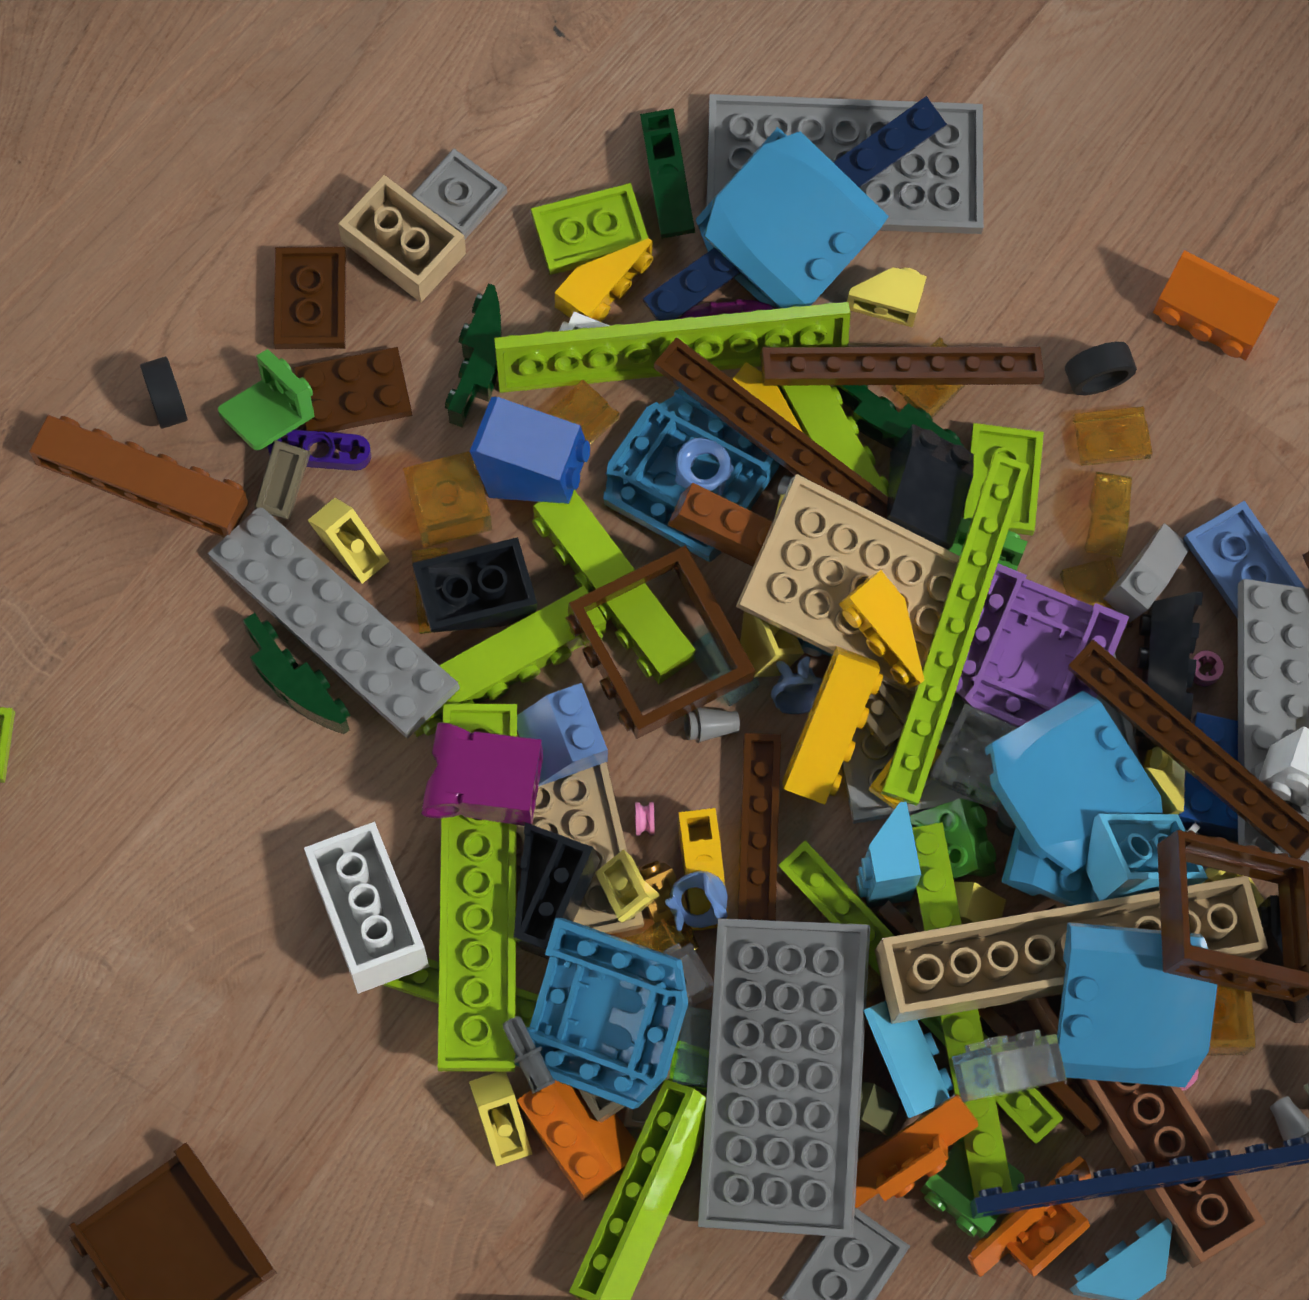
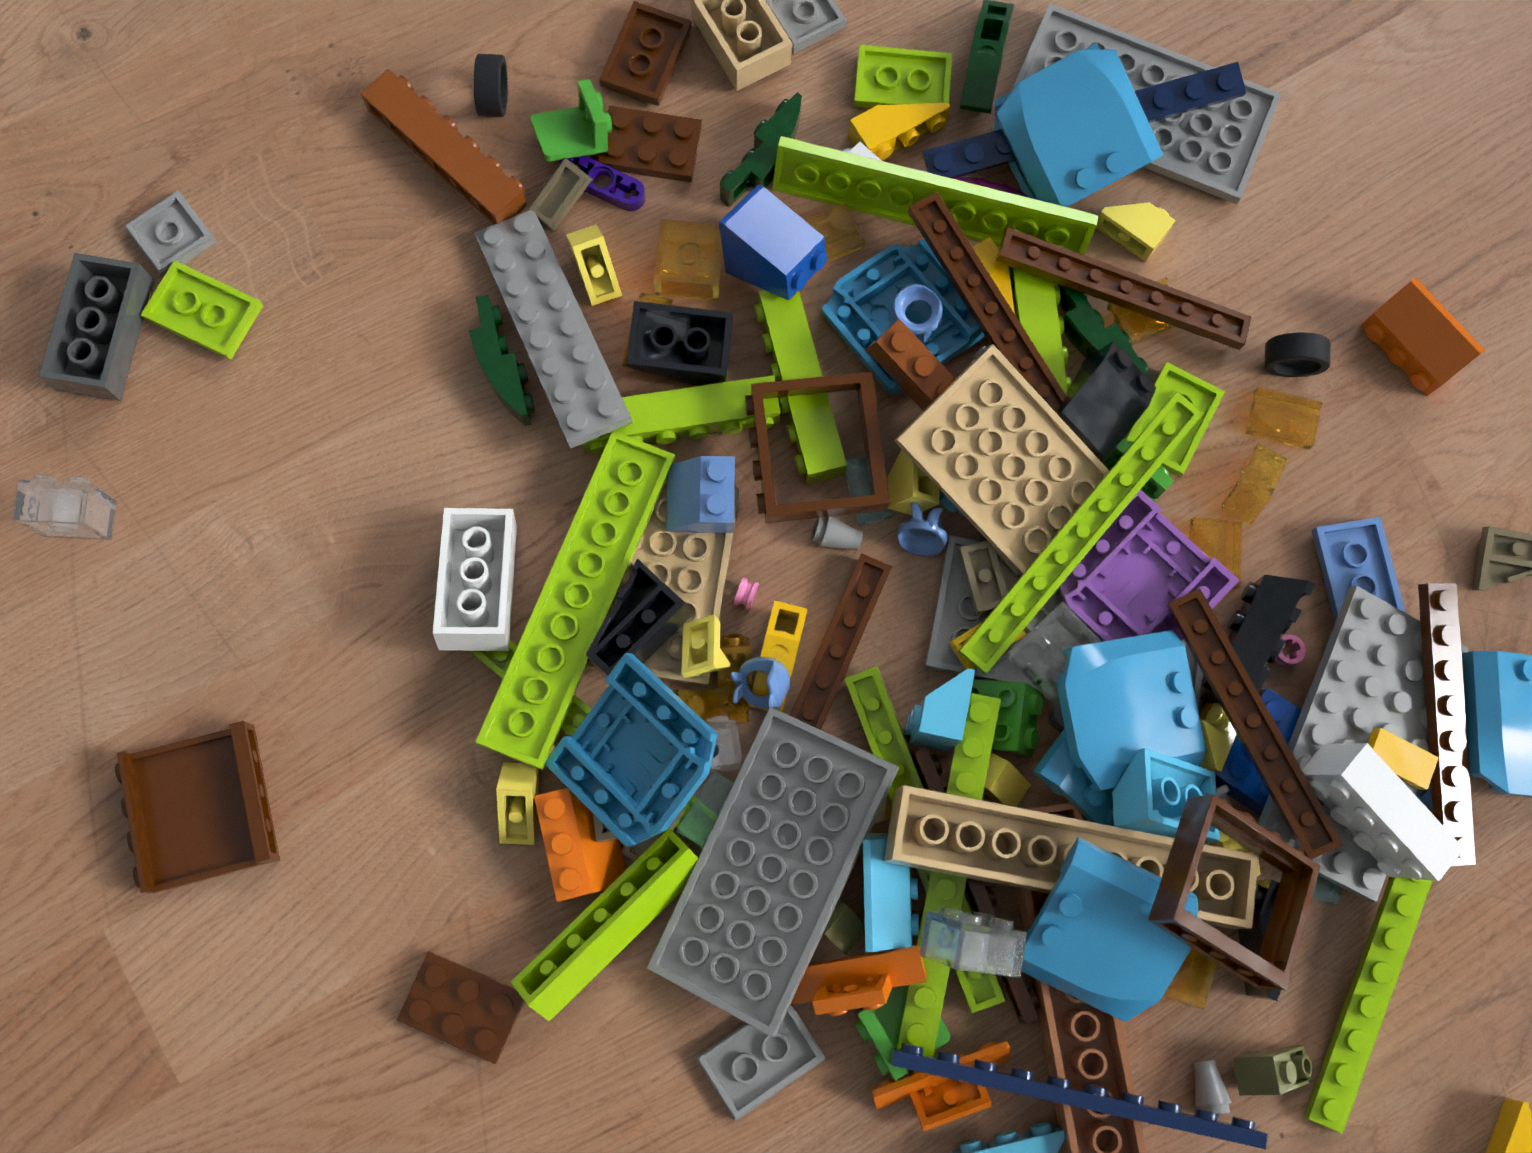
camera: 20 degrees right, 5 degrees up
(483, 776) = (618, 505): magenta piece -> none
(528, 1055) = (556, 761): dark grey axle -> none
(831, 725) = (937, 576): yellow brick -> none
(884, 620) = (1020, 502): yellow slope -> none
(1148, 573) = (1269, 549): light grey slope -> none

